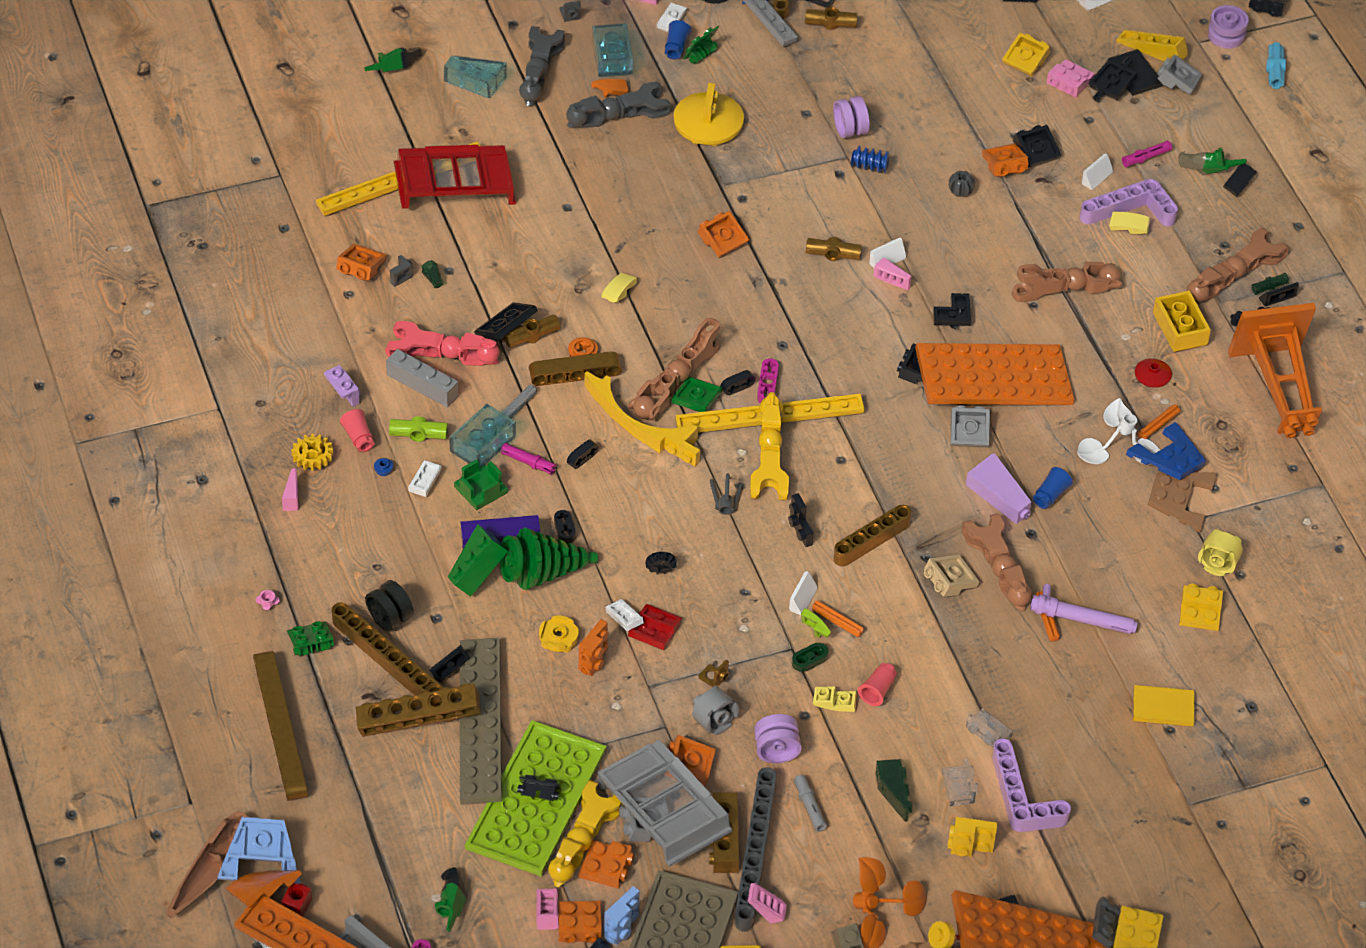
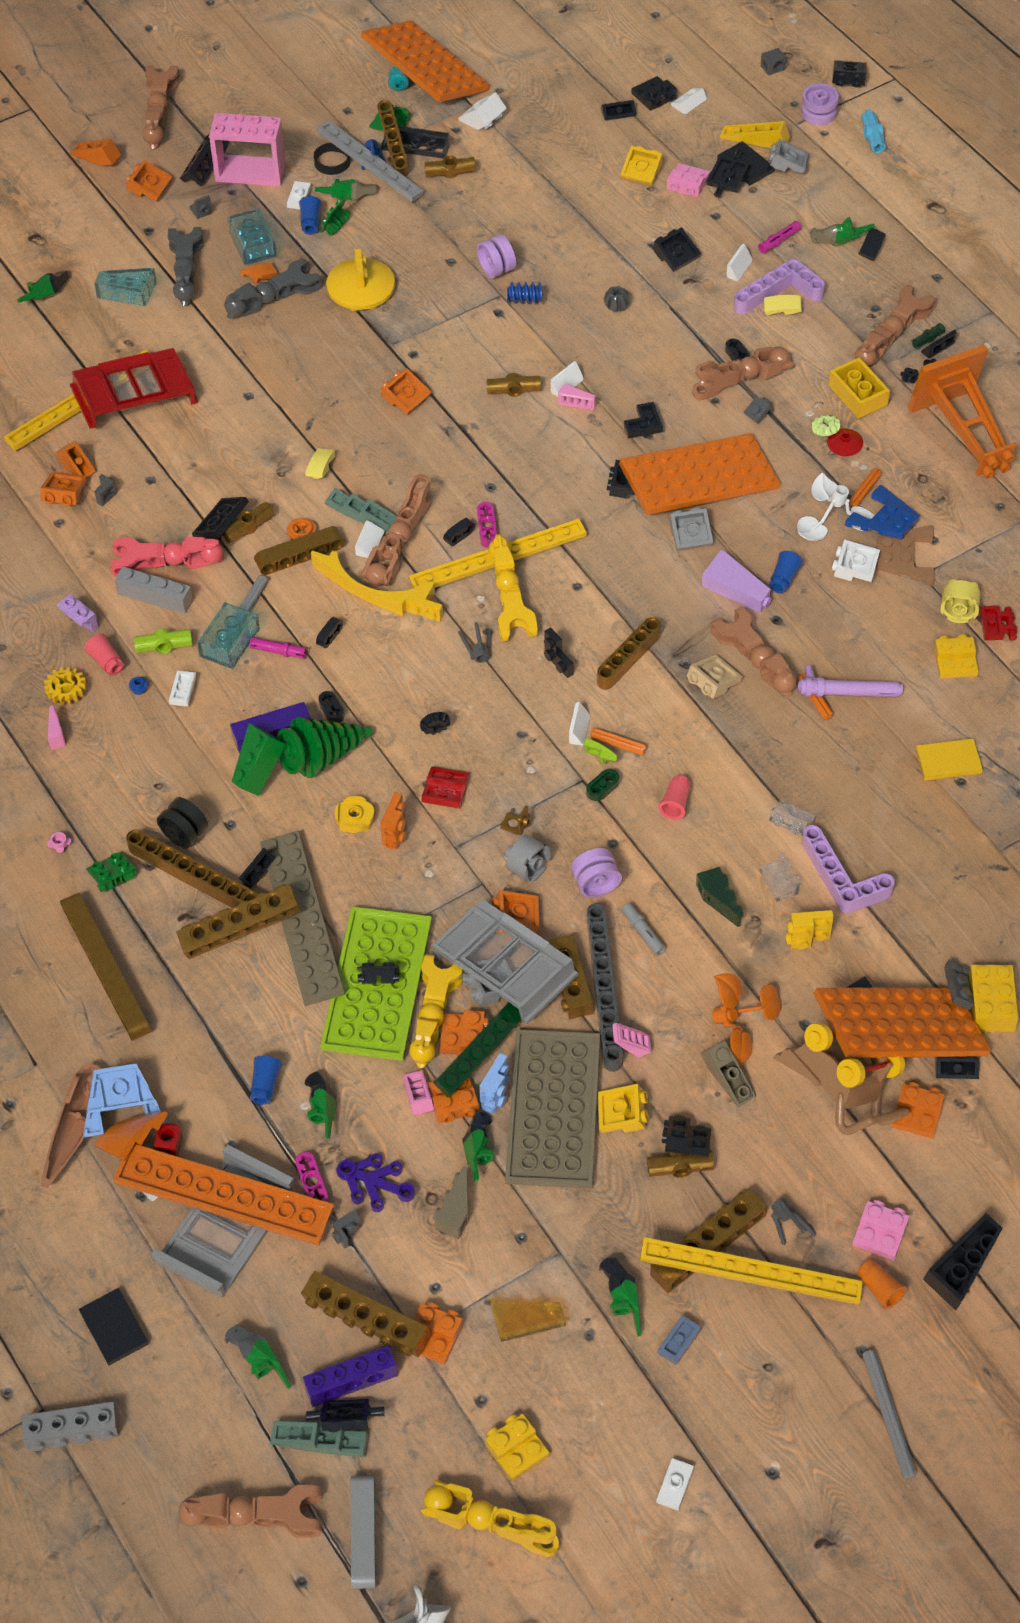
camera: 10 degrees left, 5 degrees up
(379, 236) = (75, 460): none -> orange slope
(403, 863) = (264, 1079): none -> blue plant
(432, 273) = (135, 485): clear green cone -> none
(480, 484) = (238, 682): green panel -> none
(614, 880) = (478, 1049): none -> dark green plate
(624, 615) = (413, 782): white plate -> none
(646, 370) = (370, 537): none -> white slope
(650, 344) = (360, 510): none -> sand green slope
(696, 394) = (423, 551): green plate -> none
(725, 20) = (352, 187): none -> animal
(835, 700) = (638, 822): light yellow slope -> none
(1005, 160) = (651, 268): orange plate -> none
(1072, 260) = (734, 353): none -> black beam
(1074, 322) = (758, 409): none -> dark grey bracket
(1126, 492) = (855, 561): none -> white plate
(1132, 355) = (821, 429): none -> yellowish green gear
(1247, 583) = (992, 626): none -> red plate

